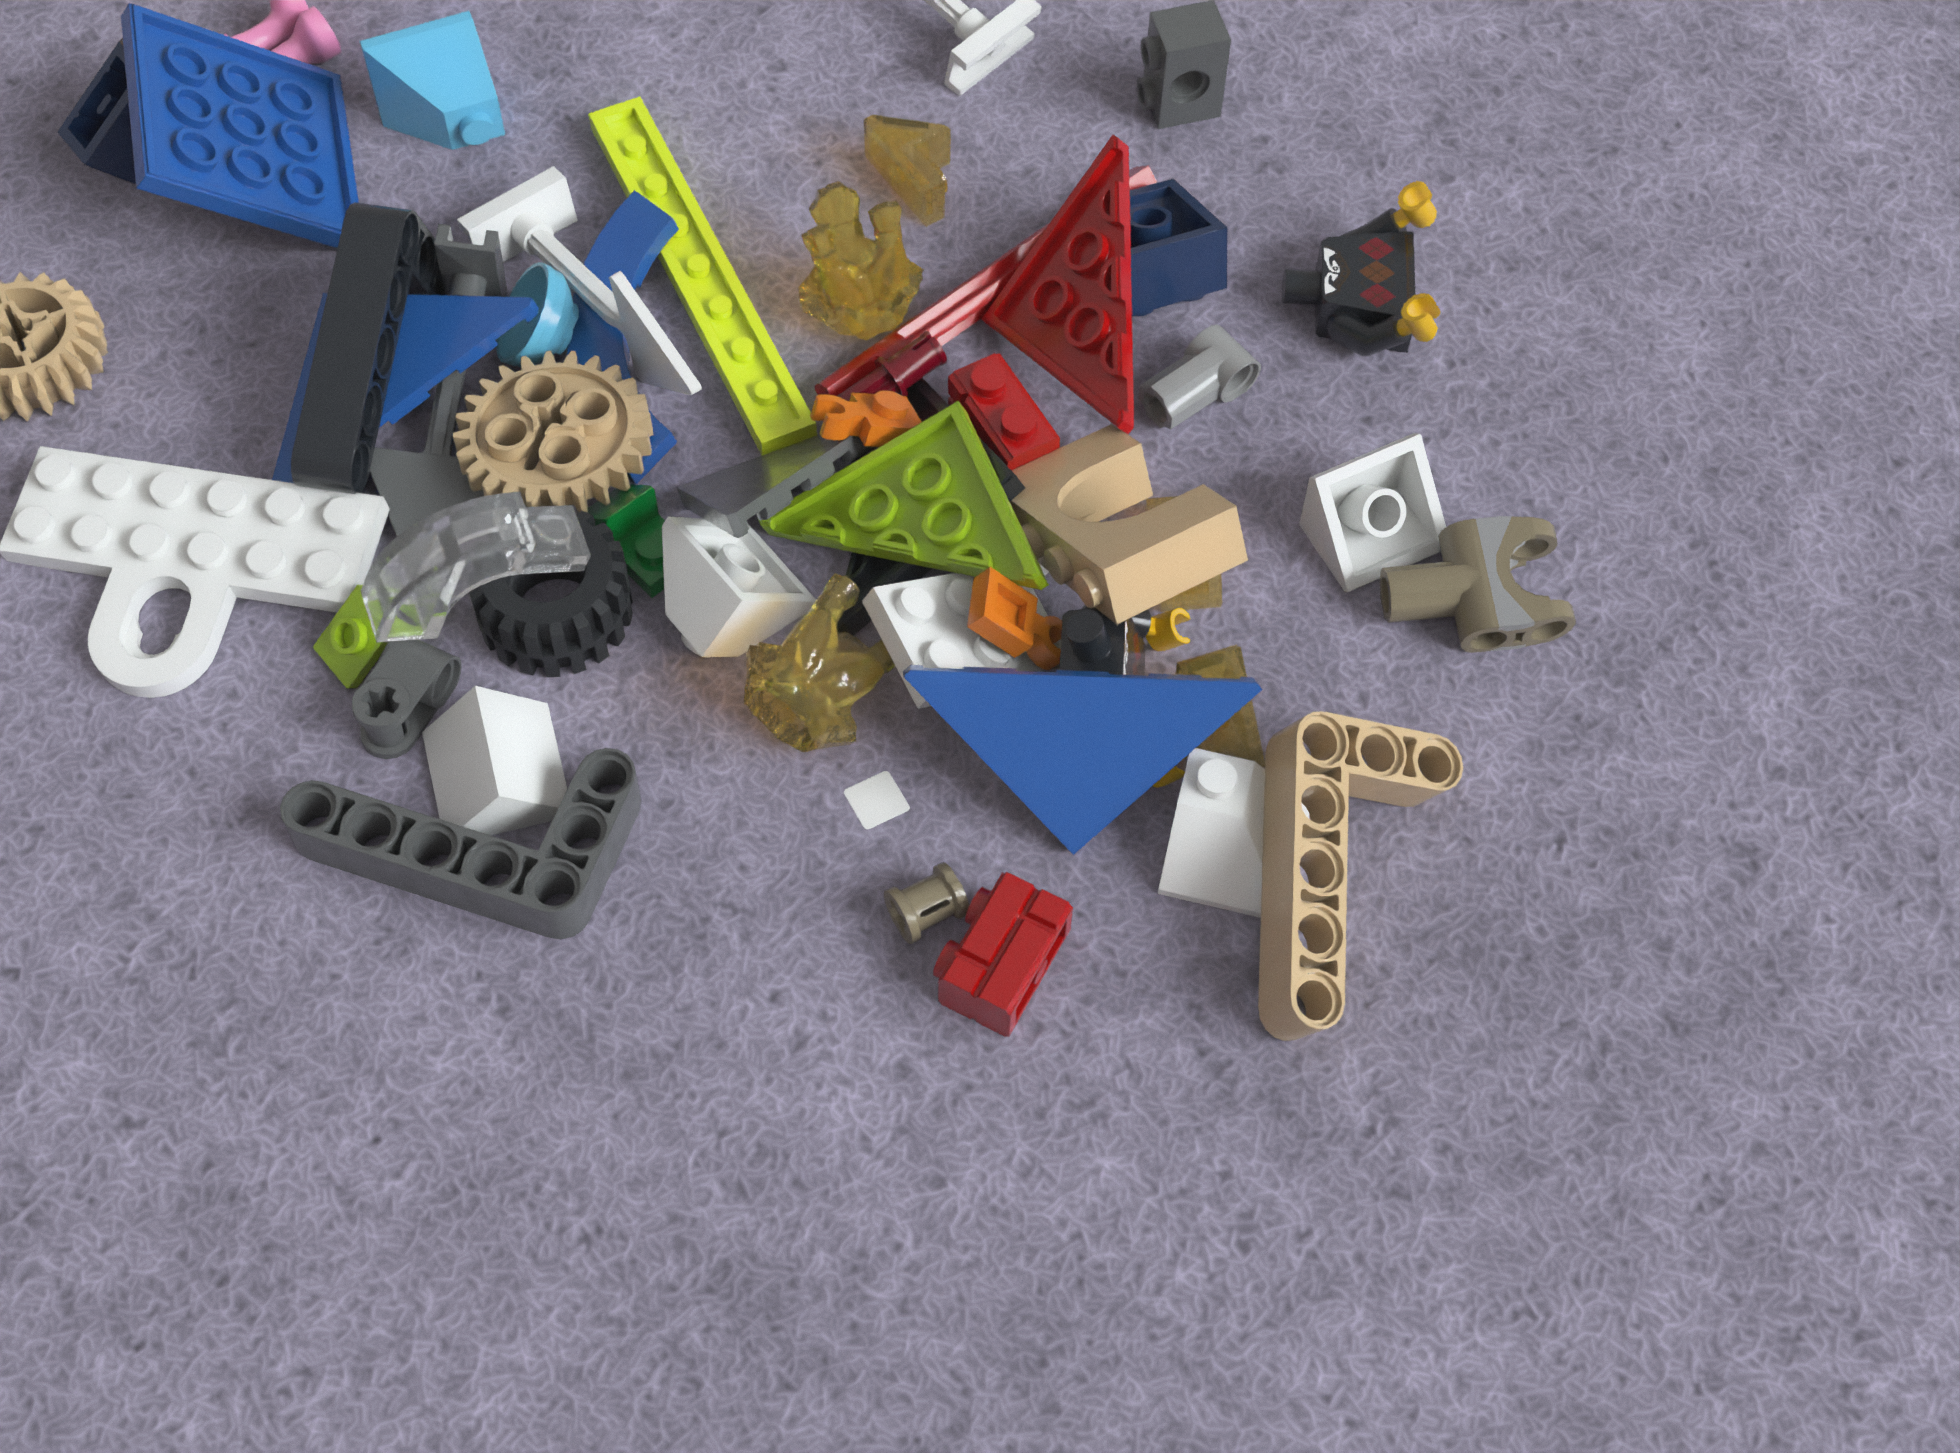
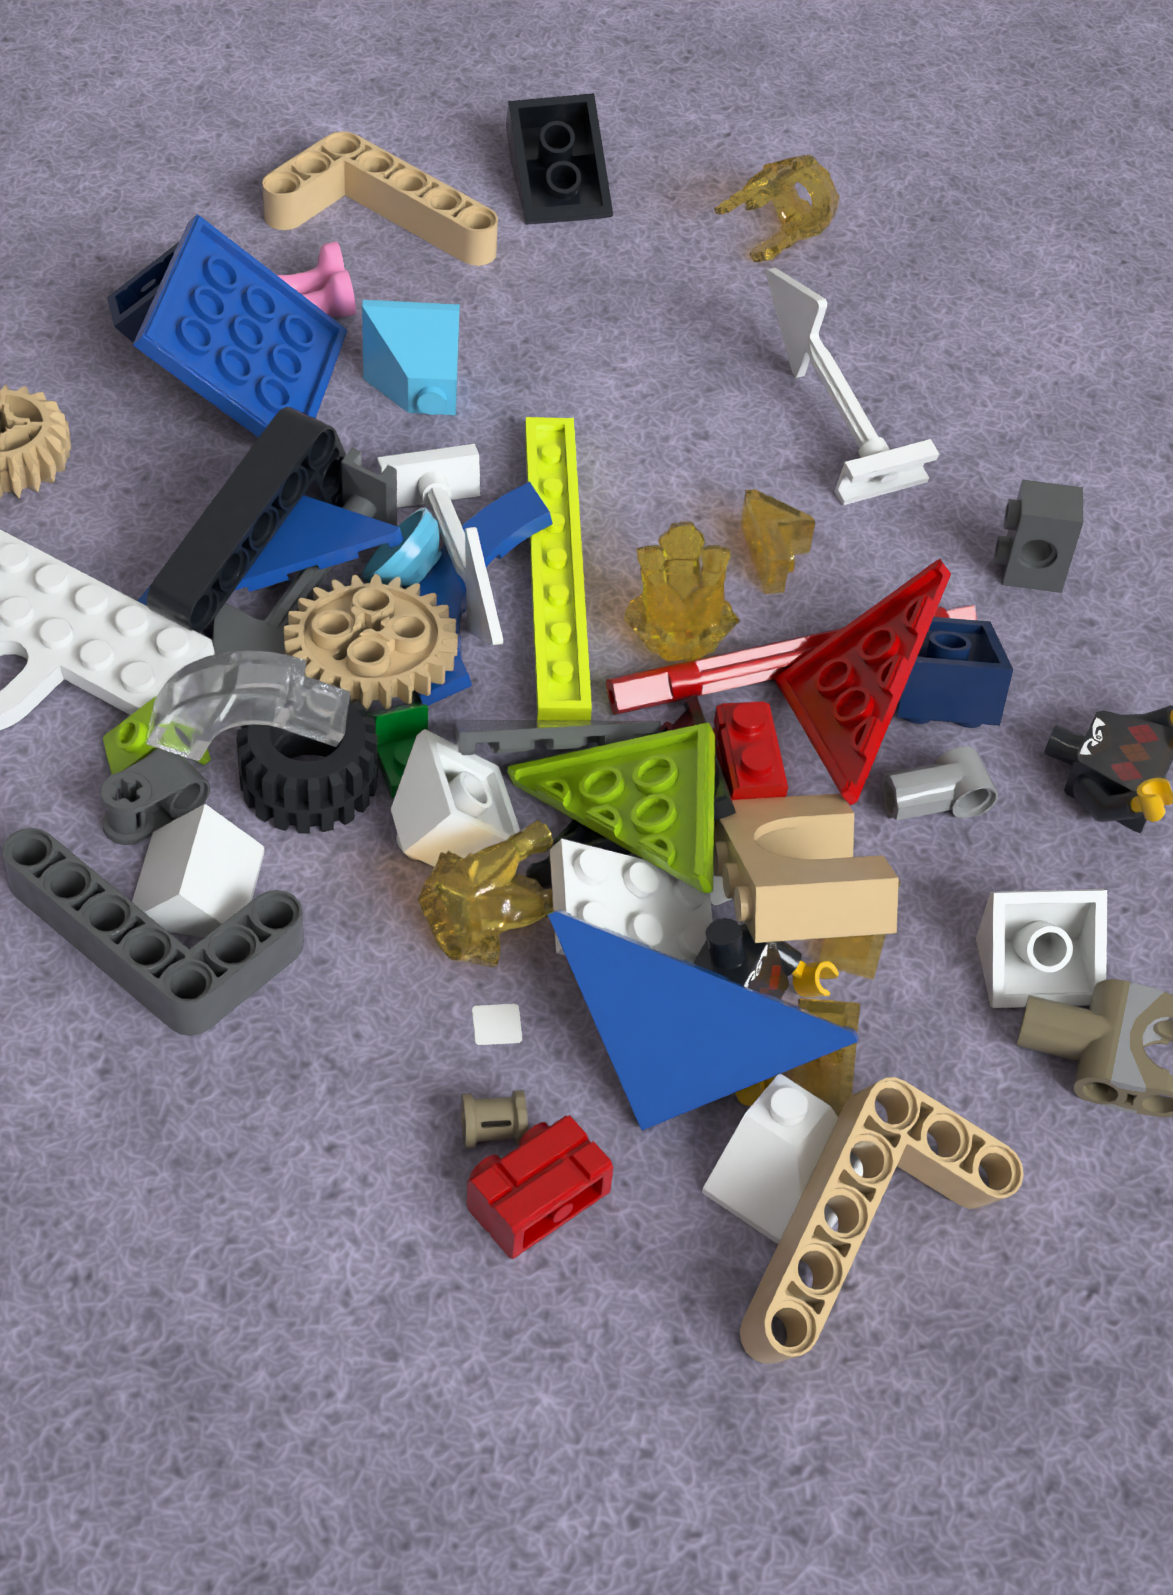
camera: 20 degrees right, 10 degrees down
(870, 416) = (631, 714): orange plate -> none
(902, 368) = (670, 694): dark red axle -> none
(1009, 619) = (669, 909): orange plate -> none

